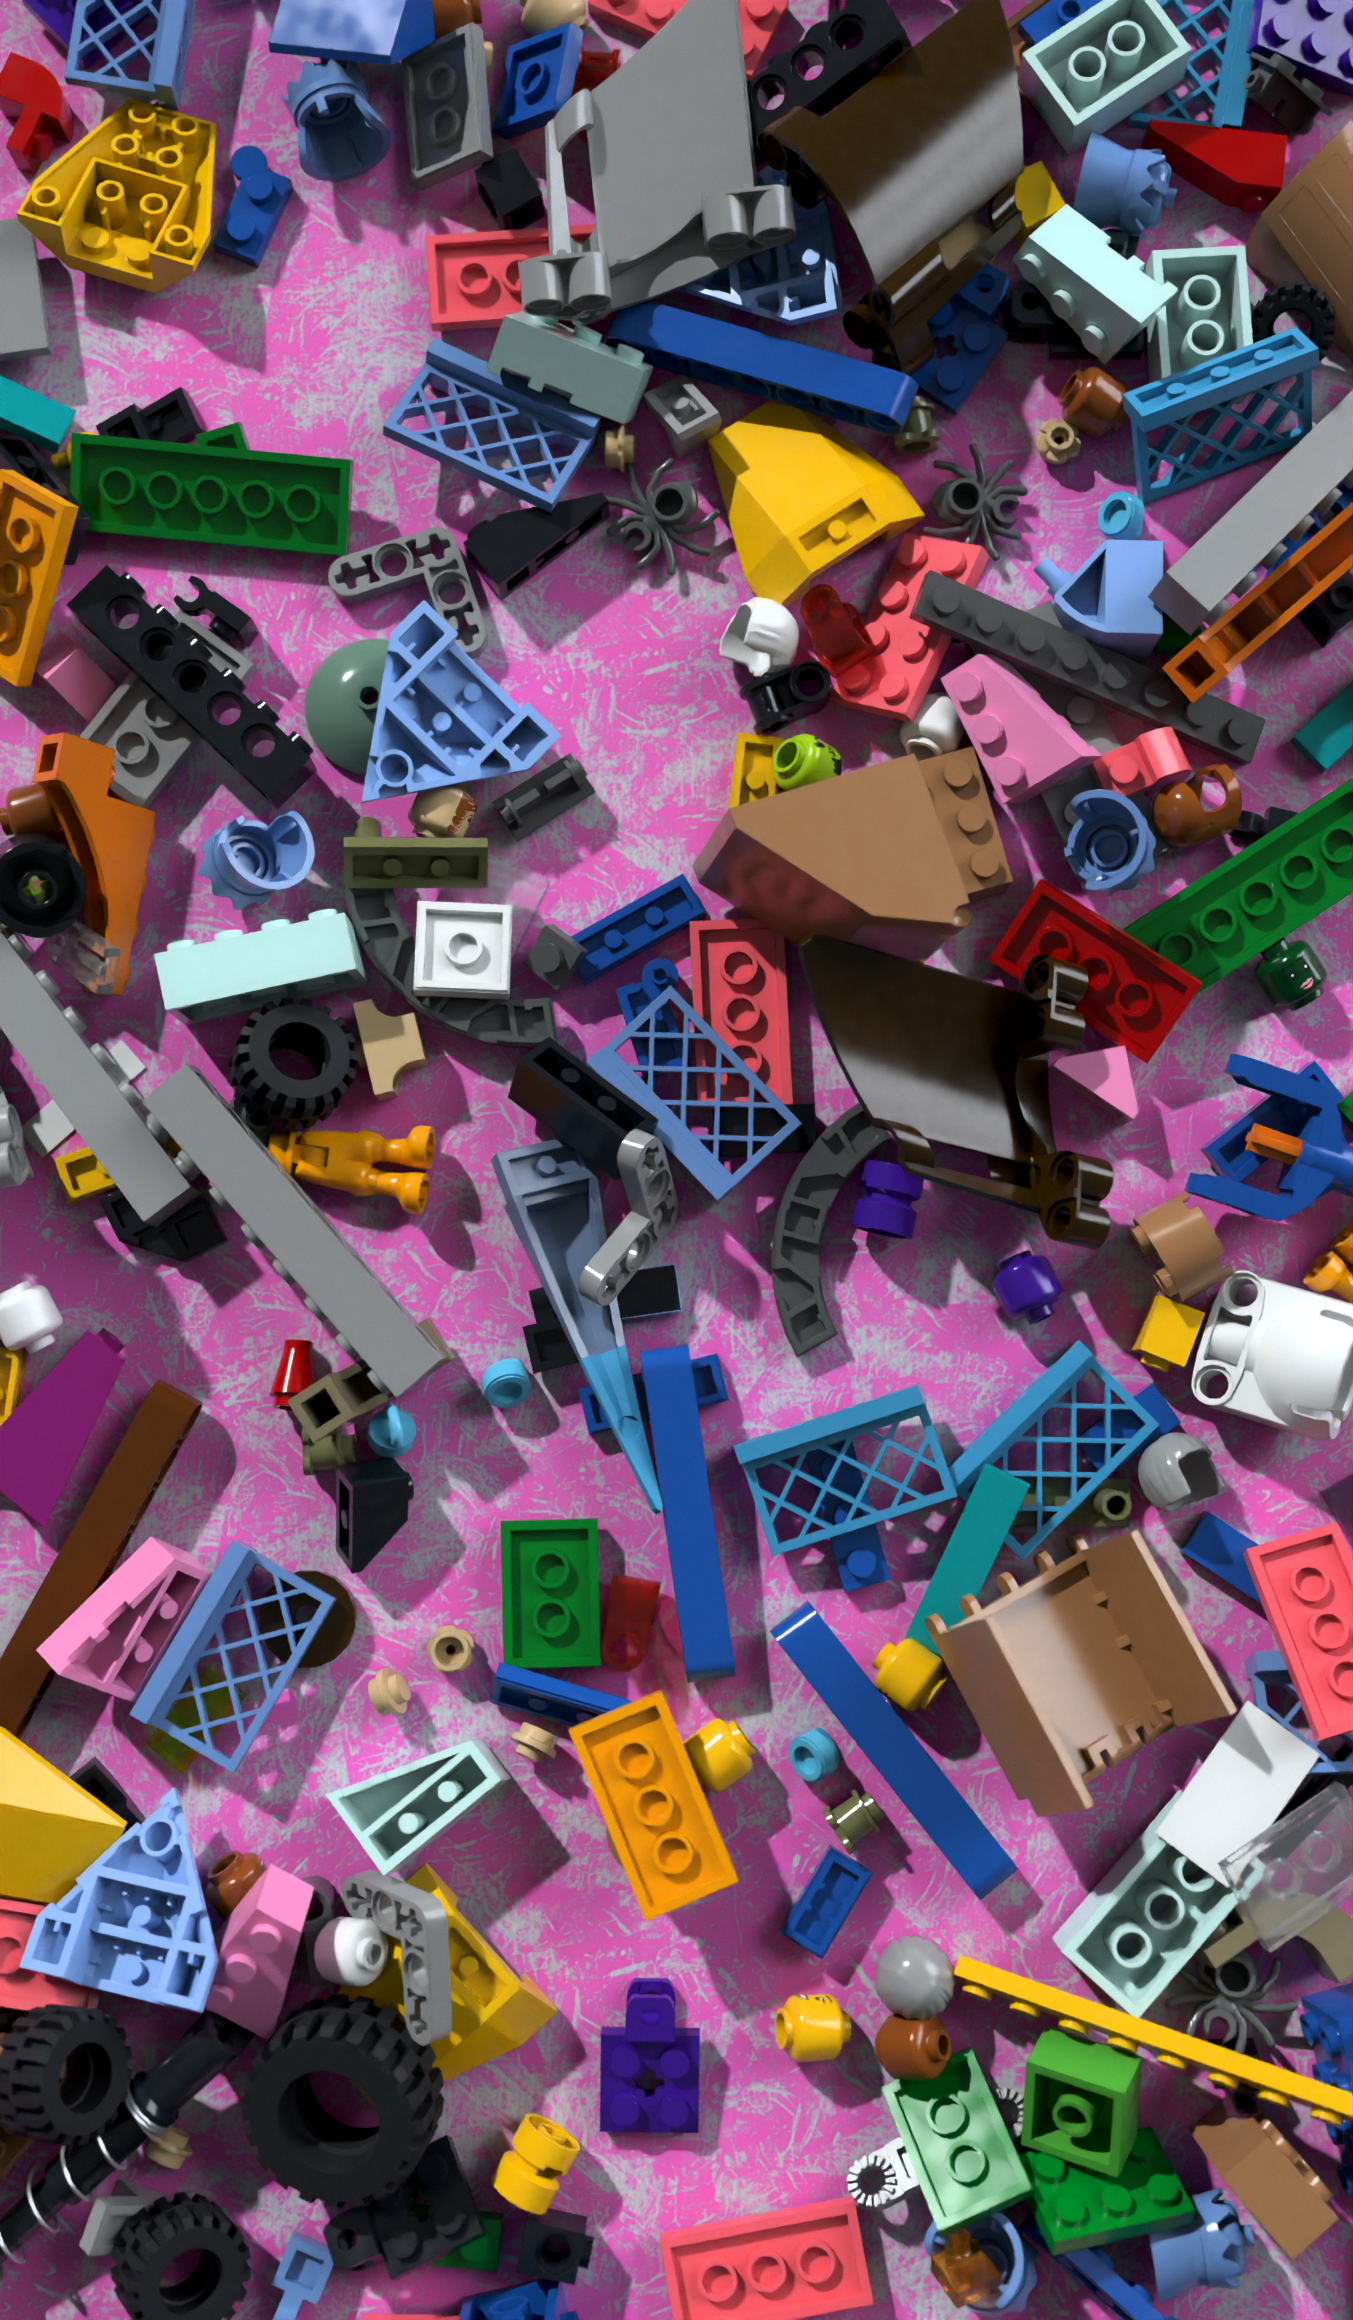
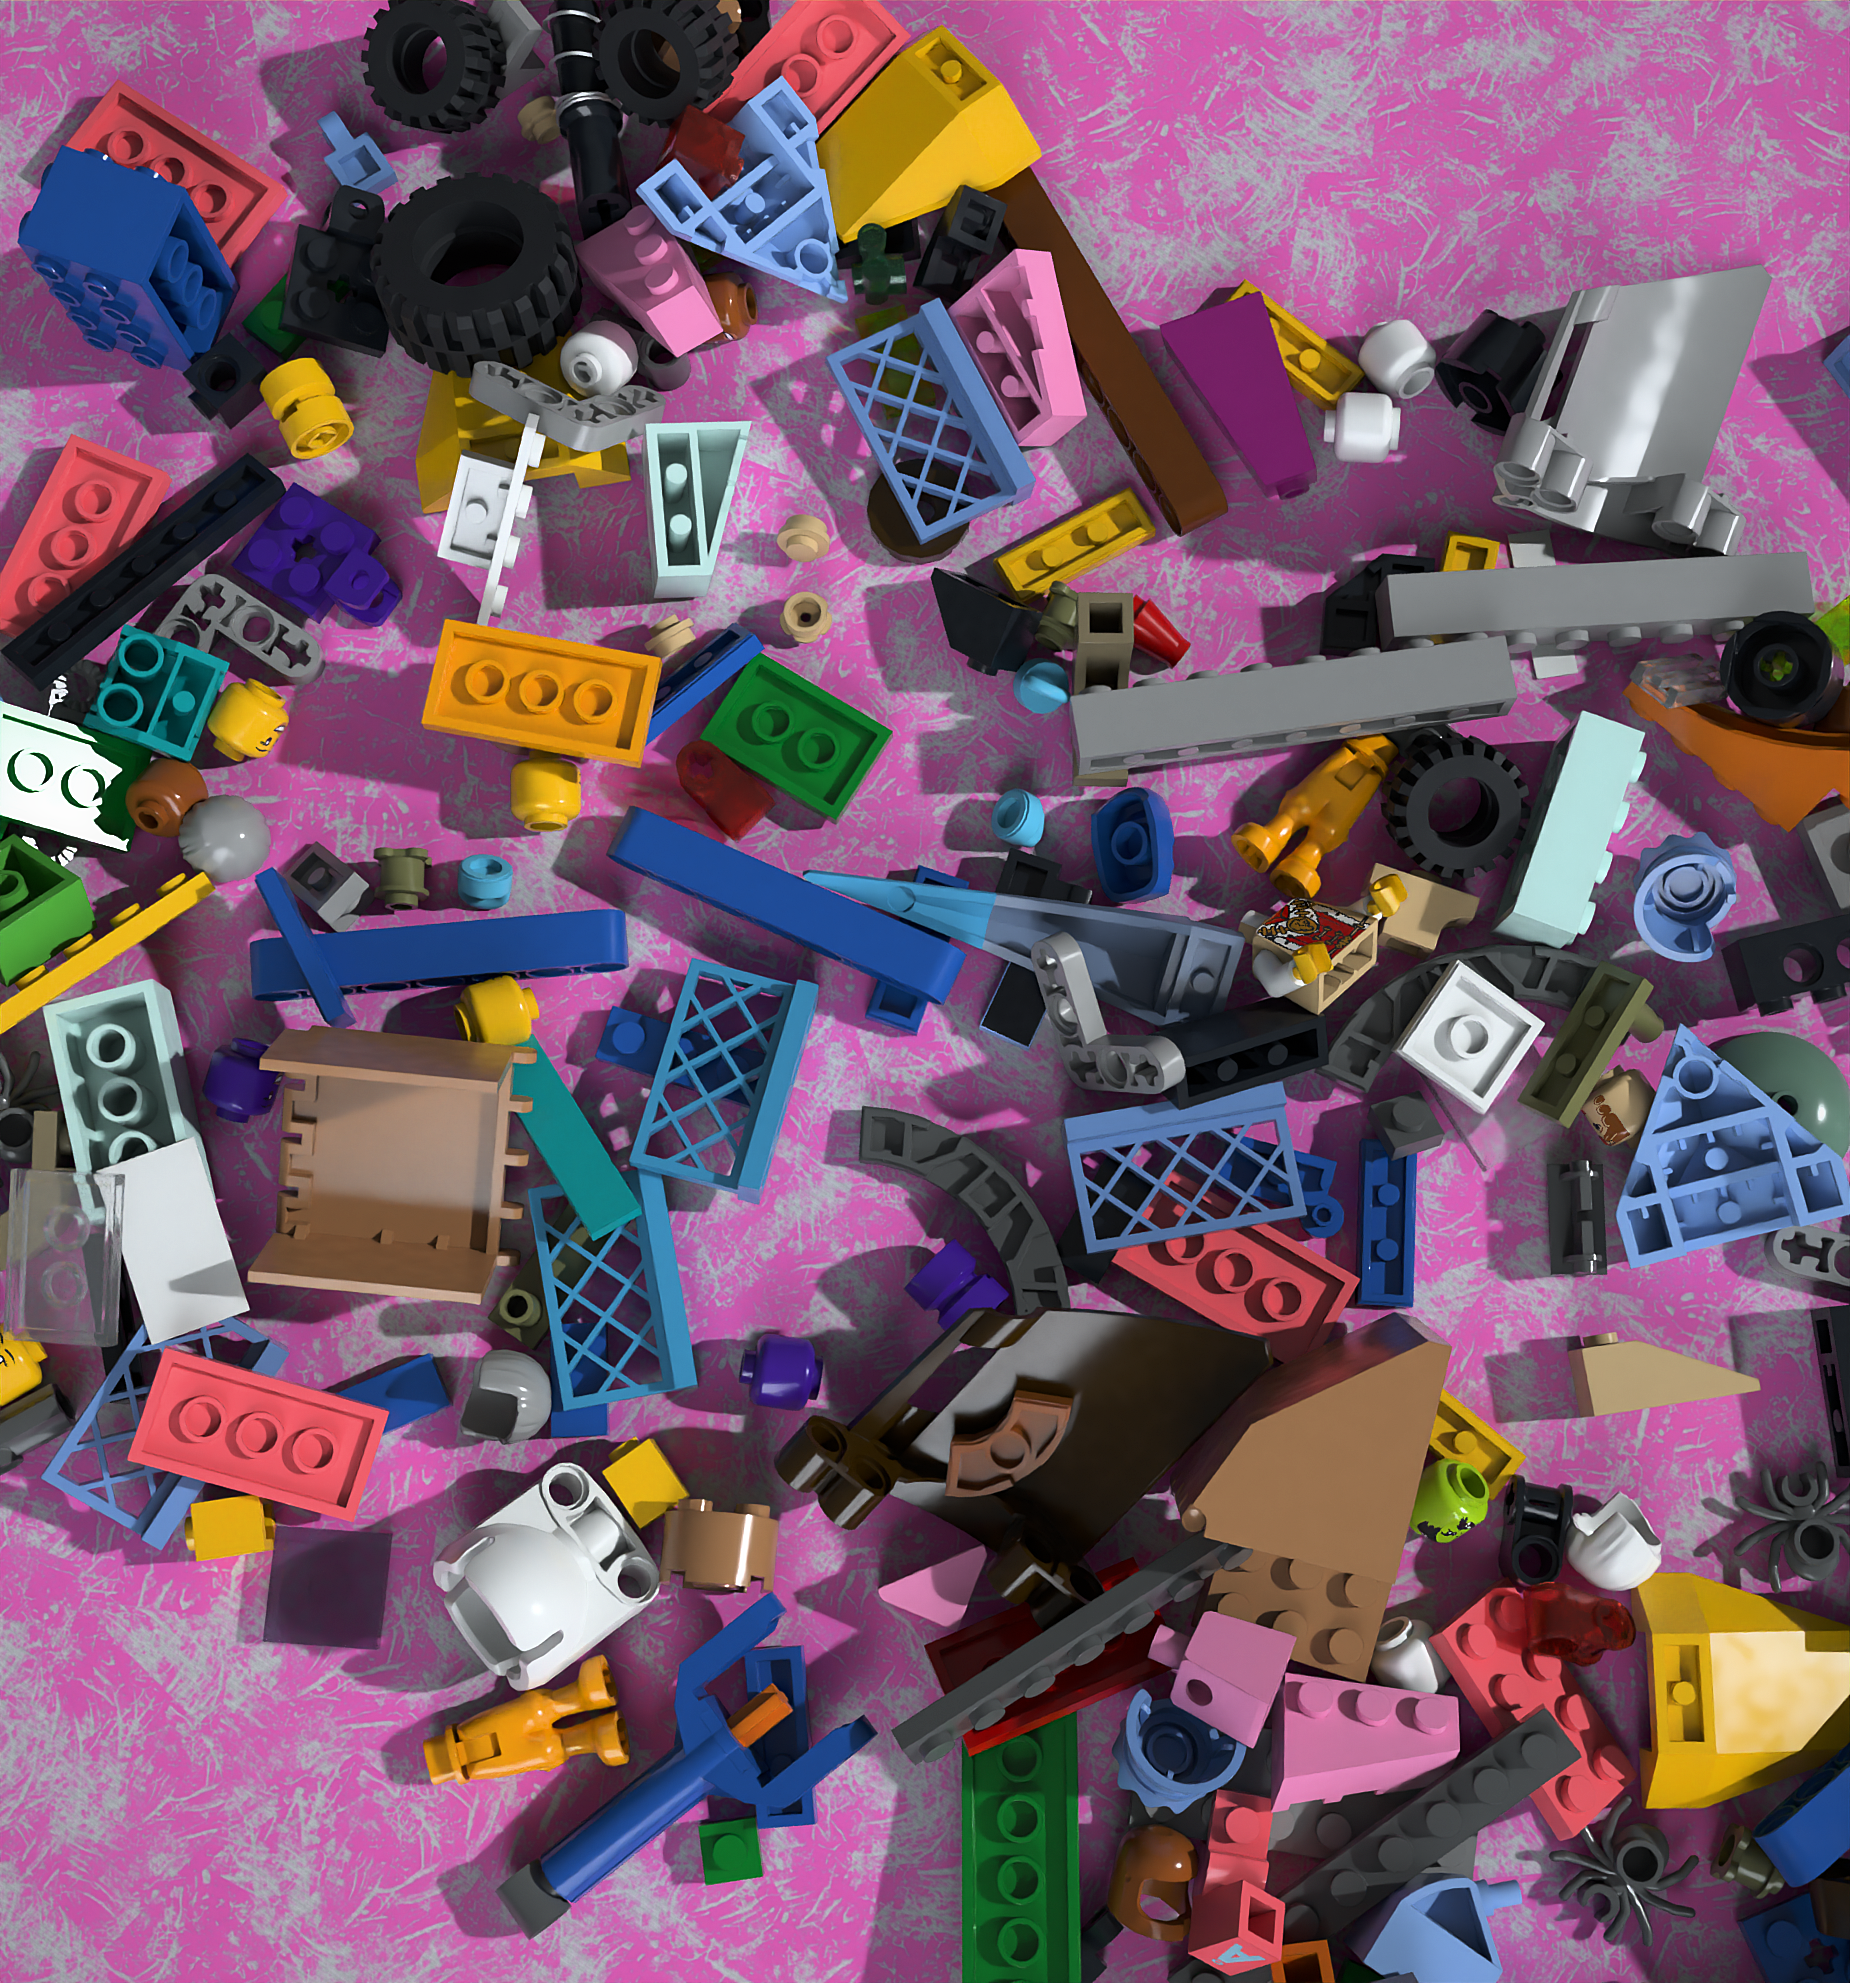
camera: 120 degrees right, 5 degrees down
(74, 1731) = (960, 238): none -> black slope
(128, 1984) = (704, 150): none -> clear red brick
(131, 1780) = (878, 272): none -> clear green plate
(262, 1479) = (1075, 547): none -> yellow tile
(467, 1098) = (1318, 948): none -> torso
(473, 1282) = (1133, 846): none -> blue piece
(538, 1953) = (483, 511): none -> white bracket
(634, 691) = (1638, 1375): none -> tan slope
(744, 2101) = (229, 624): none -> light grey beam
(751, 2195) = (143, 572): none -> black plate
(825, 1901) = (347, 805): blue plate -> none
(842, 2113) = (157, 693): none -> teal slope
(898, 1872) = (329, 887): none -> light grey slope
(963, 1850) = (304, 949): none -> blue tile
(978, 1086) = (1010, 1449): none -> dark orange tile
(1034, 840) = (1225, 1671): none -> bright pink torso
(1083, 1834) = (238, 1084): none -> dark purple head
(1120, 974) = (1071, 1641): none -> dark grey plate
(1194, 731) = (1236, 1928): none -> coral brick
(1290, 974) = (919, 1863): dark green head -> none

